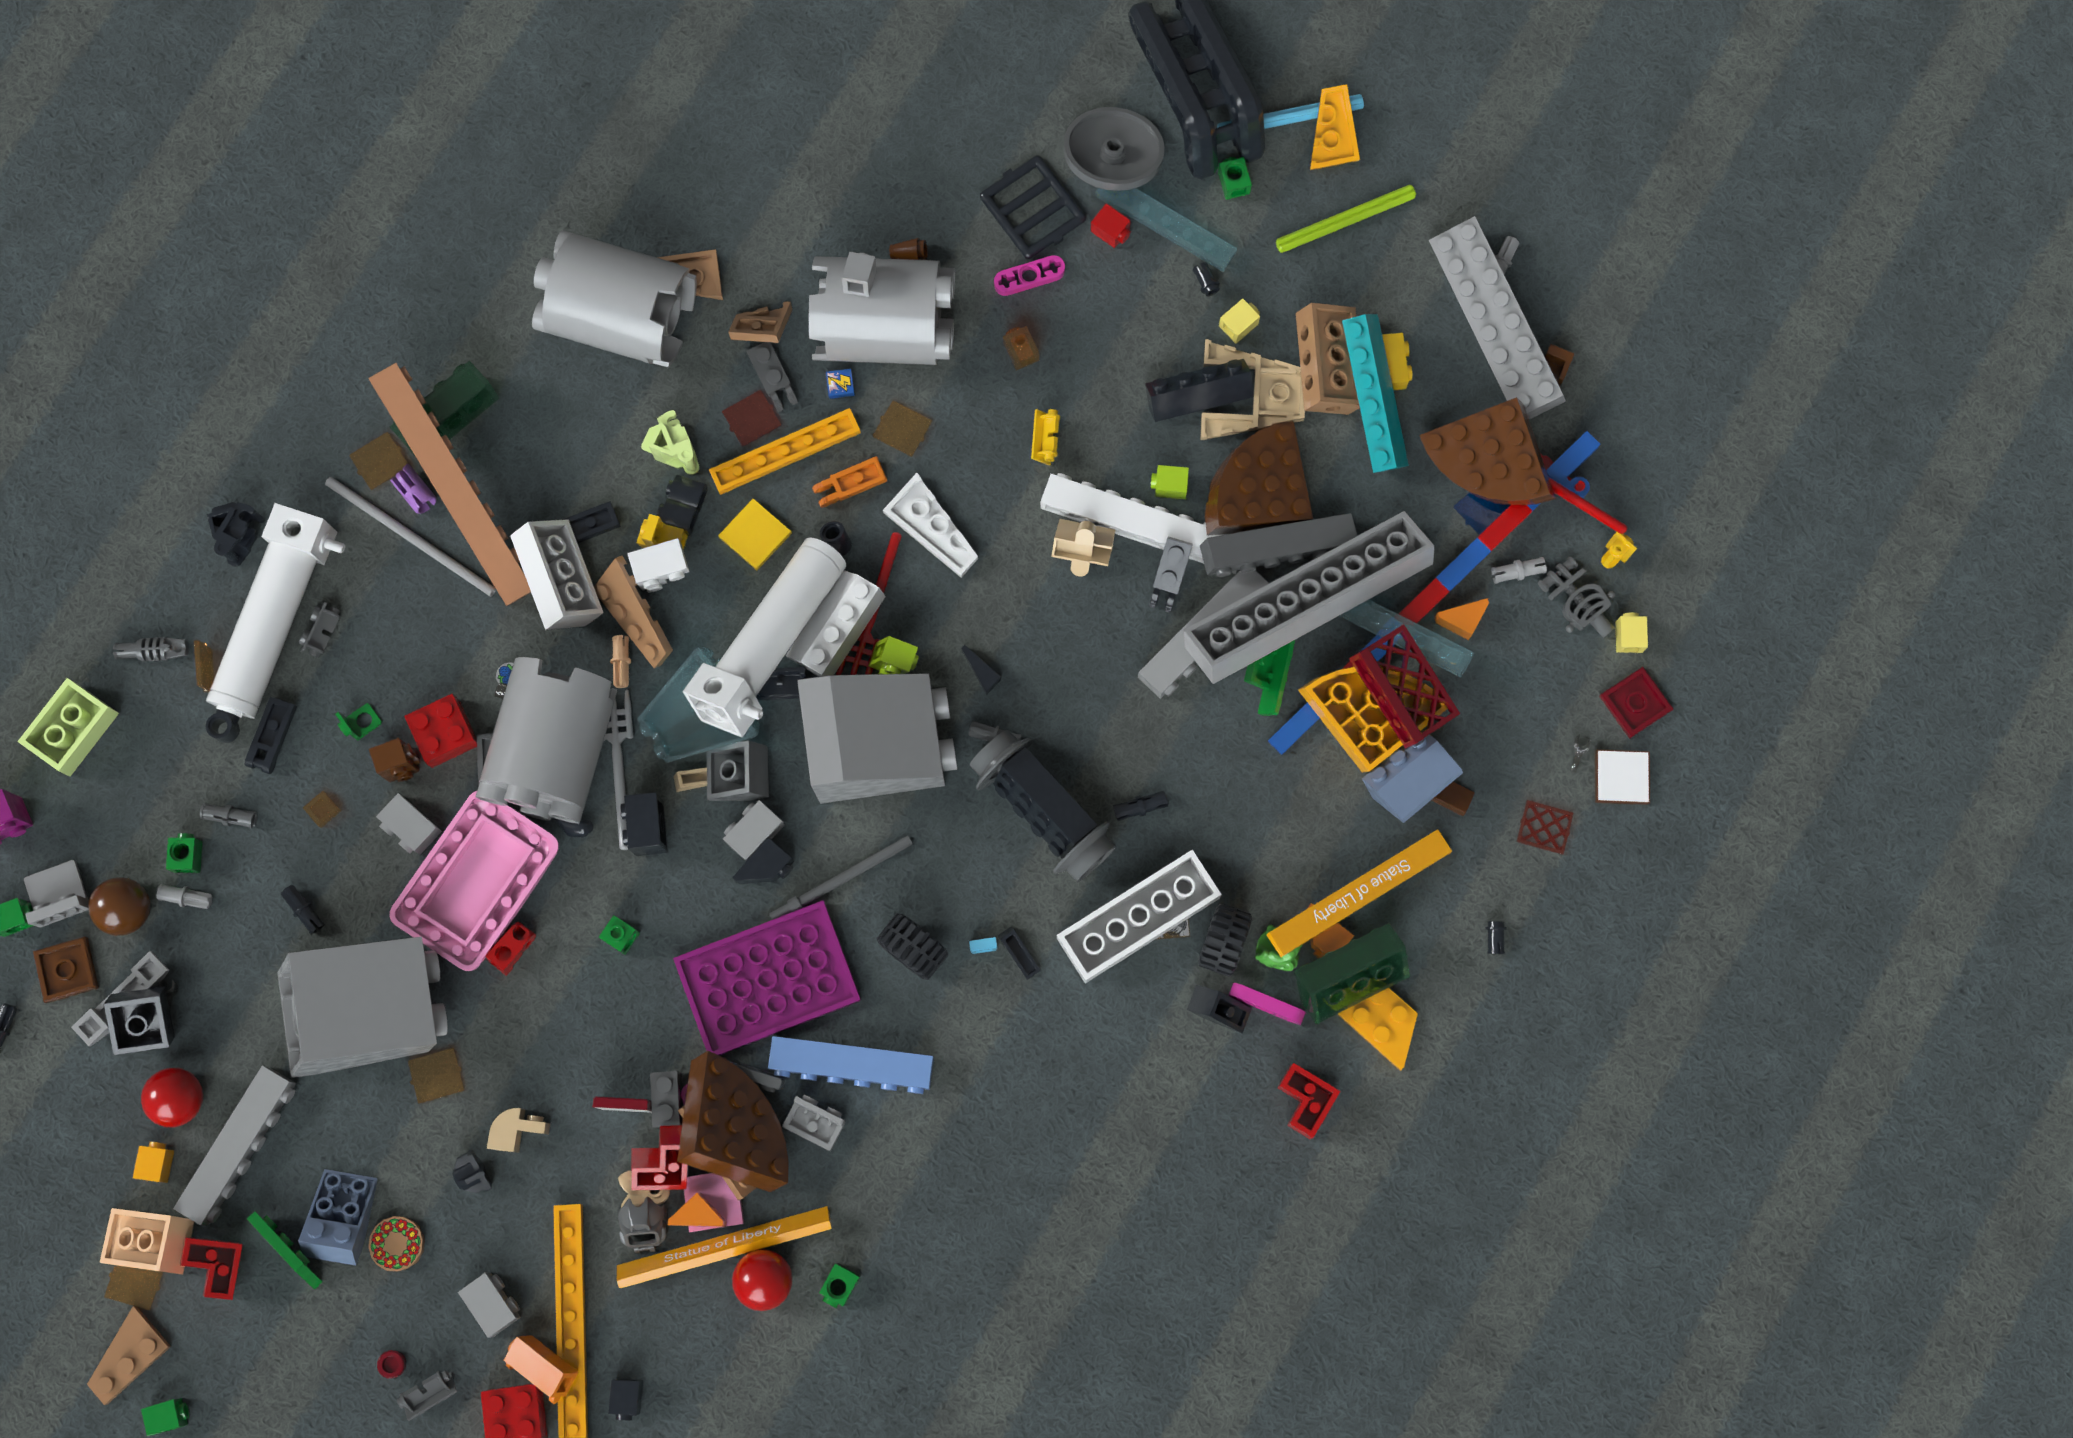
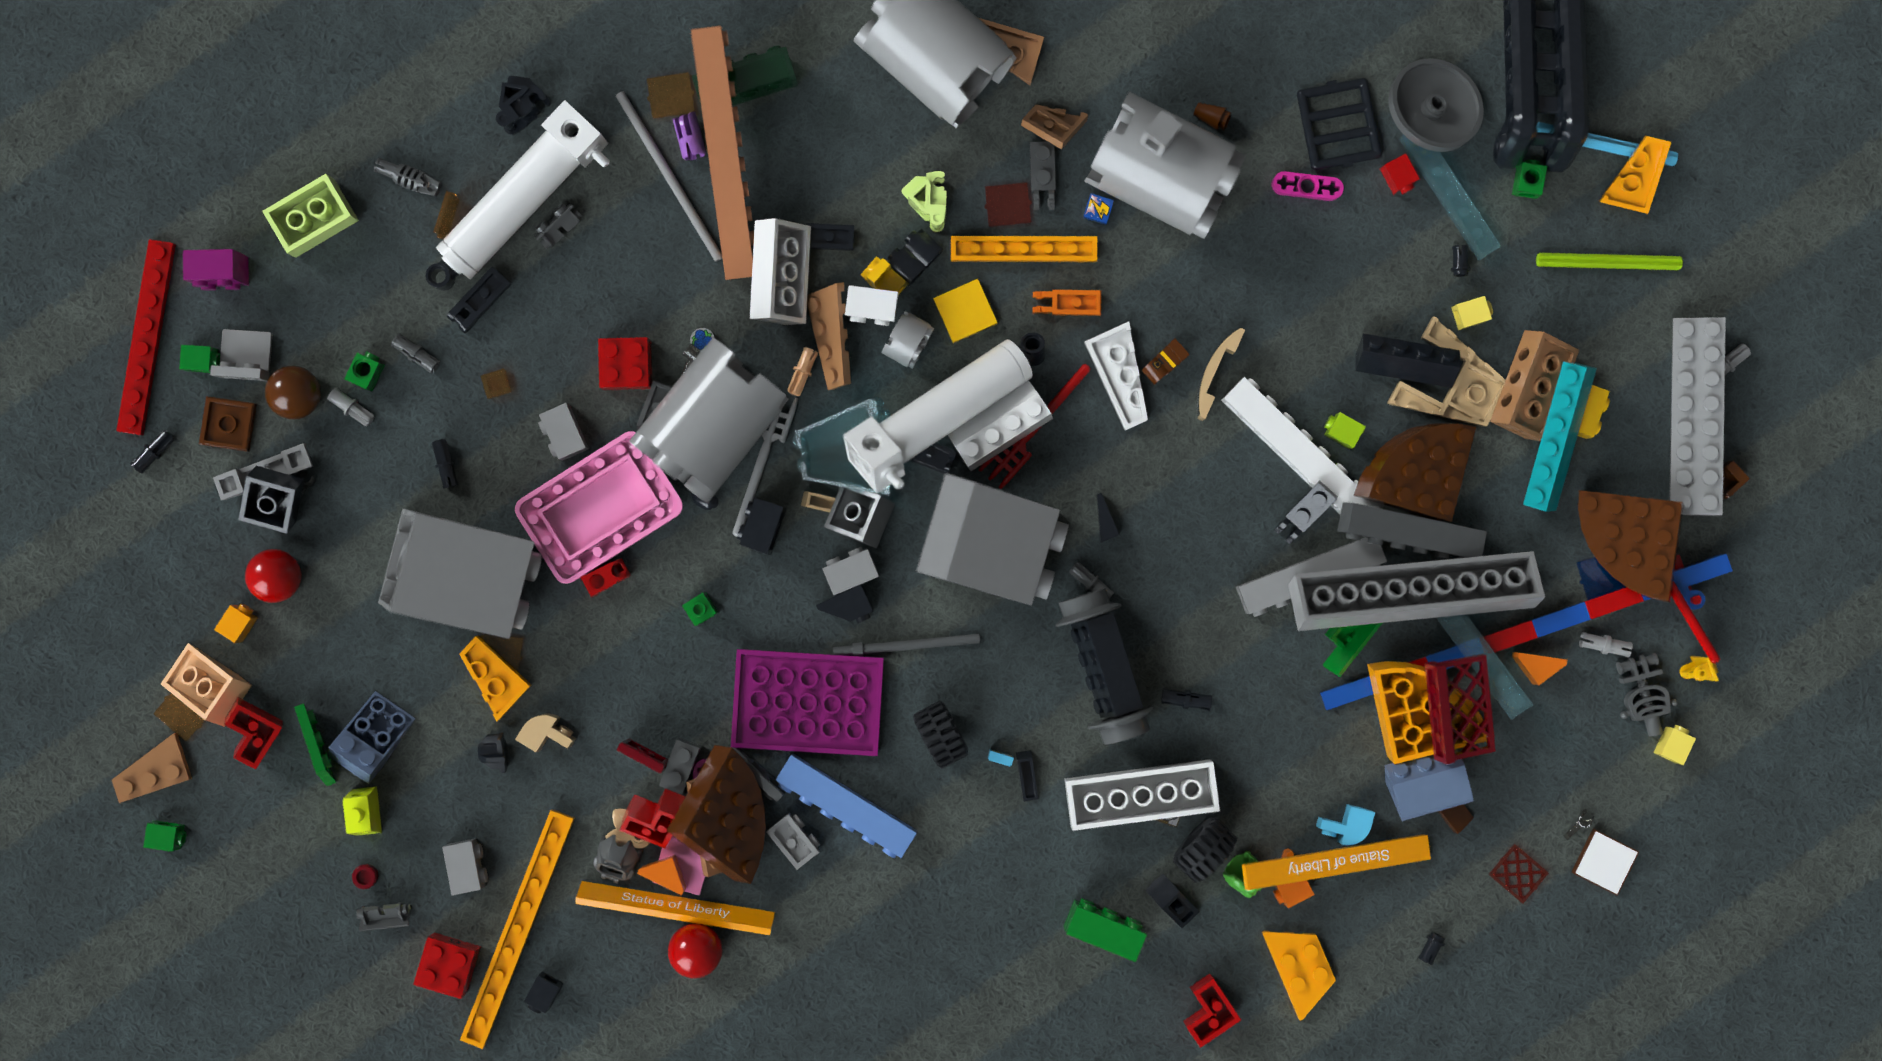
camera: 20 degrees right, 10 degrees up
(235, 1146) = (309, 639): light grey brick -> none
(349, 725) = (548, 322): green bracket -> none
(361, 1297) = (362, 811): none -> neon yellow torso
(395, 760) = (575, 373): reddish brown brick -> none
(396, 1243) = (409, 780): tile -> none
(441, 1098) = (495, 677): none -> light orange wing
(540, 1366) = (484, 937): brick -> none
(709, 583) = (908, 339): none -> light grey brick
(850, 1279) = (763, 975): green brick -> none
(893, 656) = (1035, 478): lime brick -> none
(902, 428) = (1134, 274): clear orange piece -> none
(969, 494) = (1165, 361): none -> reddish brown leg
(1020, 347) = (1270, 249): clear orange brick -> none
(1022, 511) = (1204, 399): none -> tan slope
(1044, 443) = (1250, 347): yellow hinge -> none
(1082, 544) = (1242, 452): tan piece -> none
(1164, 1064) = (1105, 929): none -> green brick
(1267, 1003) = (1214, 915): dark pink beam -> none
(1352, 973) = (1298, 926): clear green brick -> none
(1362, 854) = (1354, 827): none -> medium azure brick
(1636, 702) = (1648, 804): dark red tile -> none

